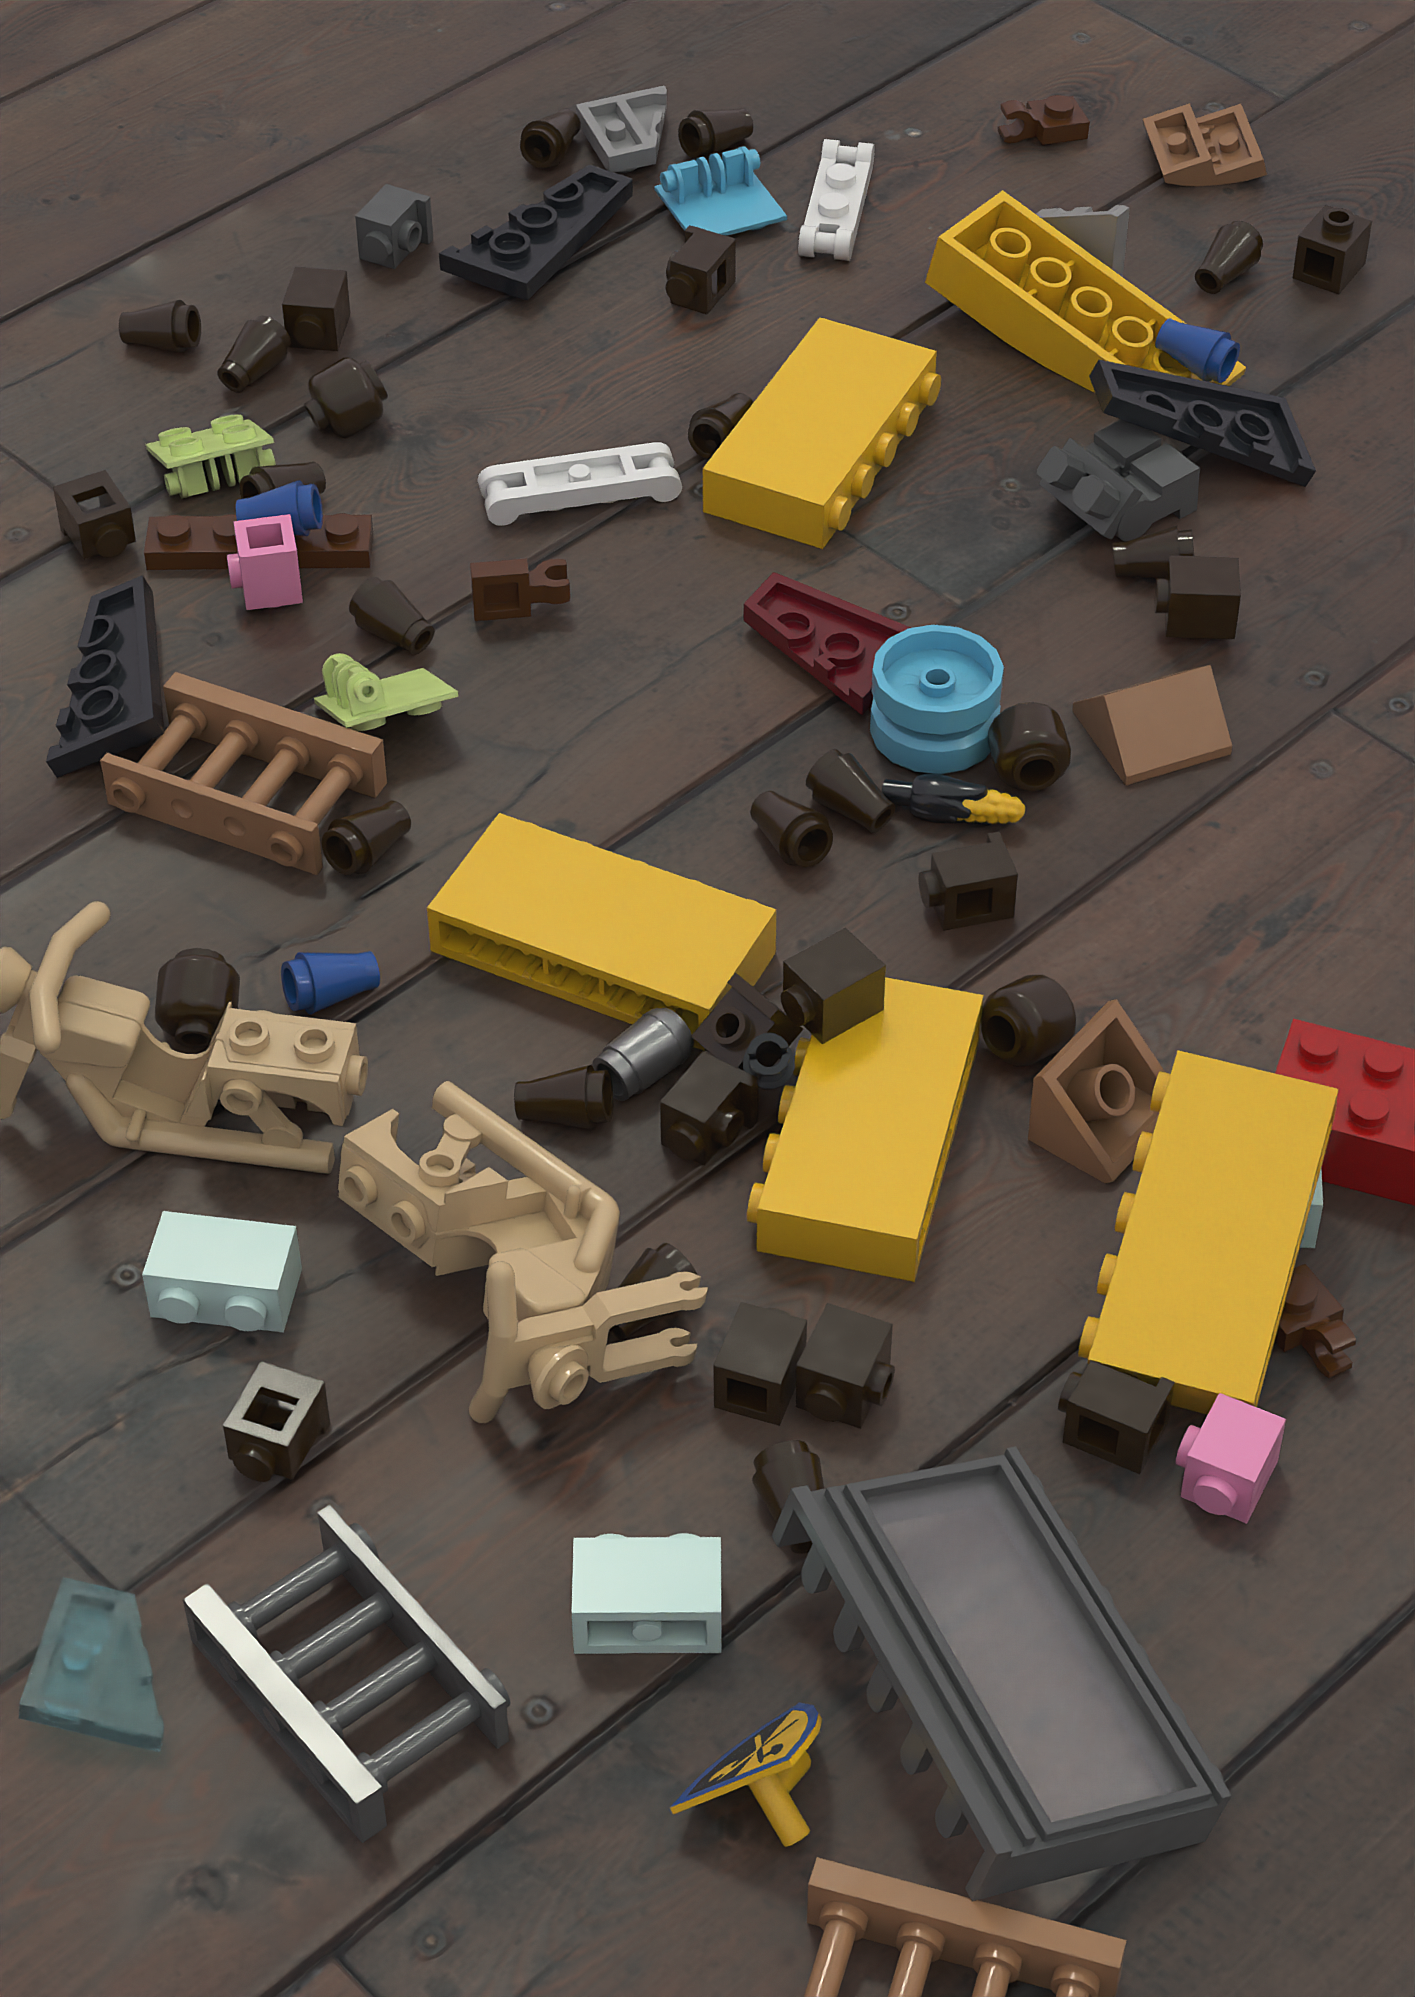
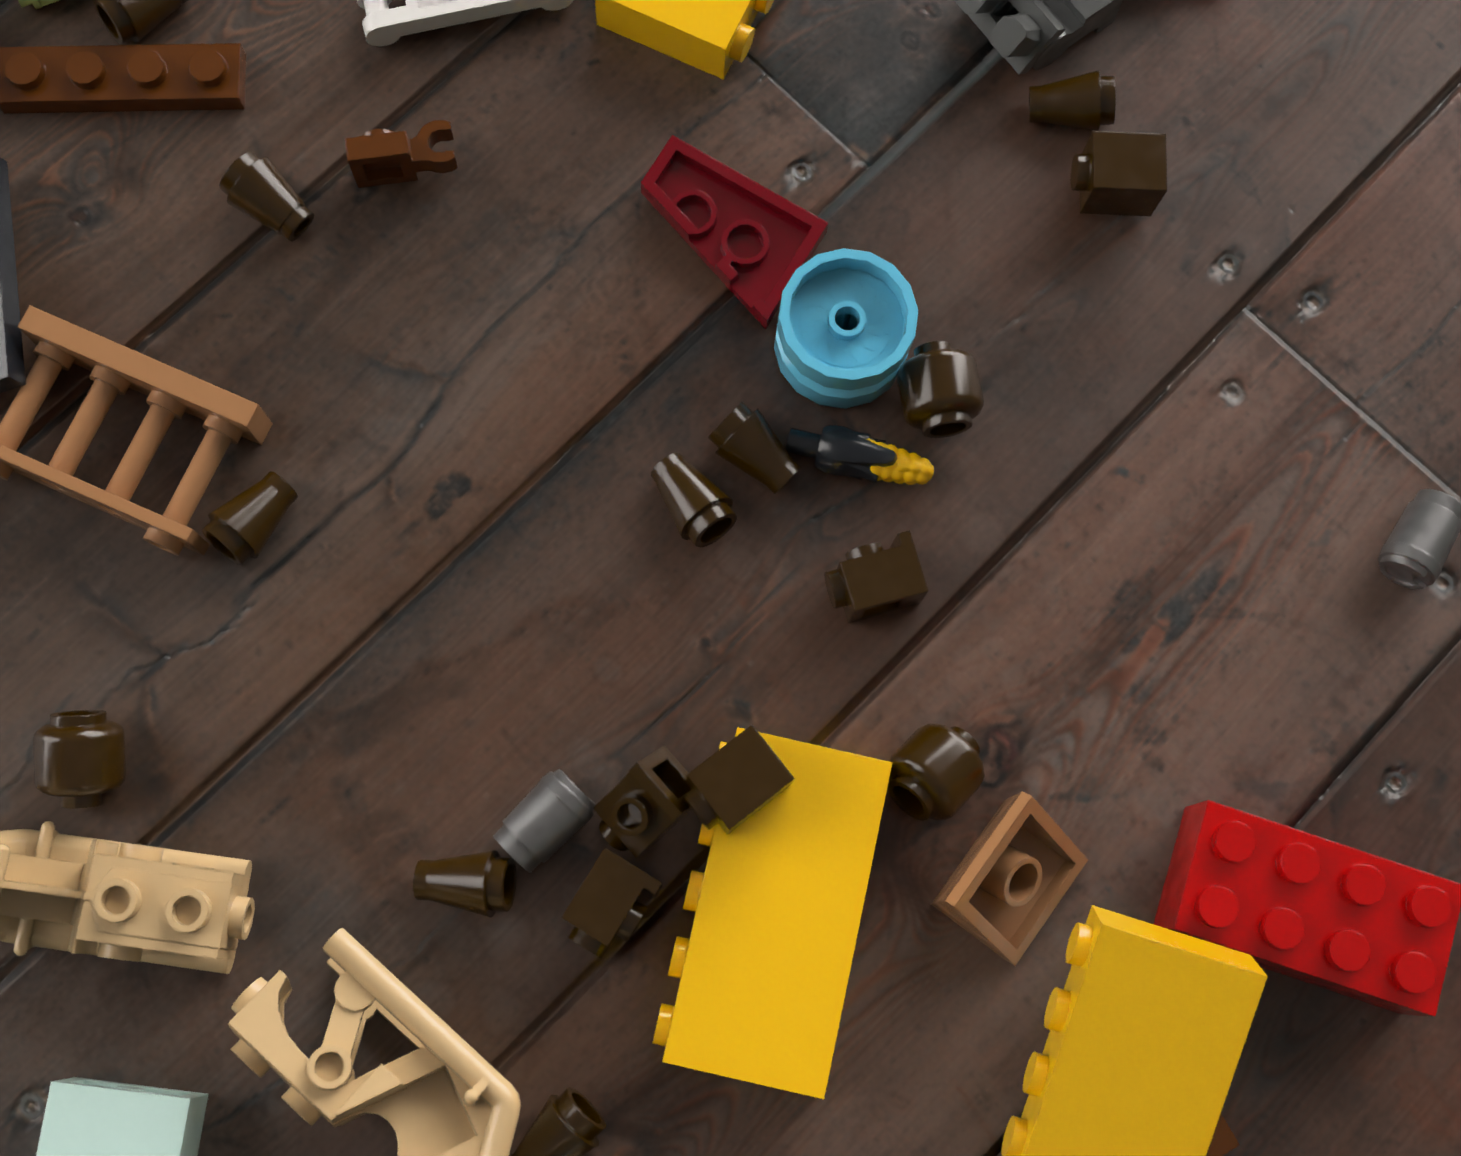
camera: 10 degrees left, 30 degrees up
(266, 562) = (124, 130): bright pink brick -> none
(296, 499) = (138, 59): blue cone -> none
(325, 979) = (215, 721): blue cone -> none
(363, 700) = (258, 322): yellowish green hinge -> none
(597, 925) = (499, 649): yellow brick -> none
(774, 1076) = (672, 863): black pin -> none
(1158, 724) = (1068, 338): medium nougat slope -> none

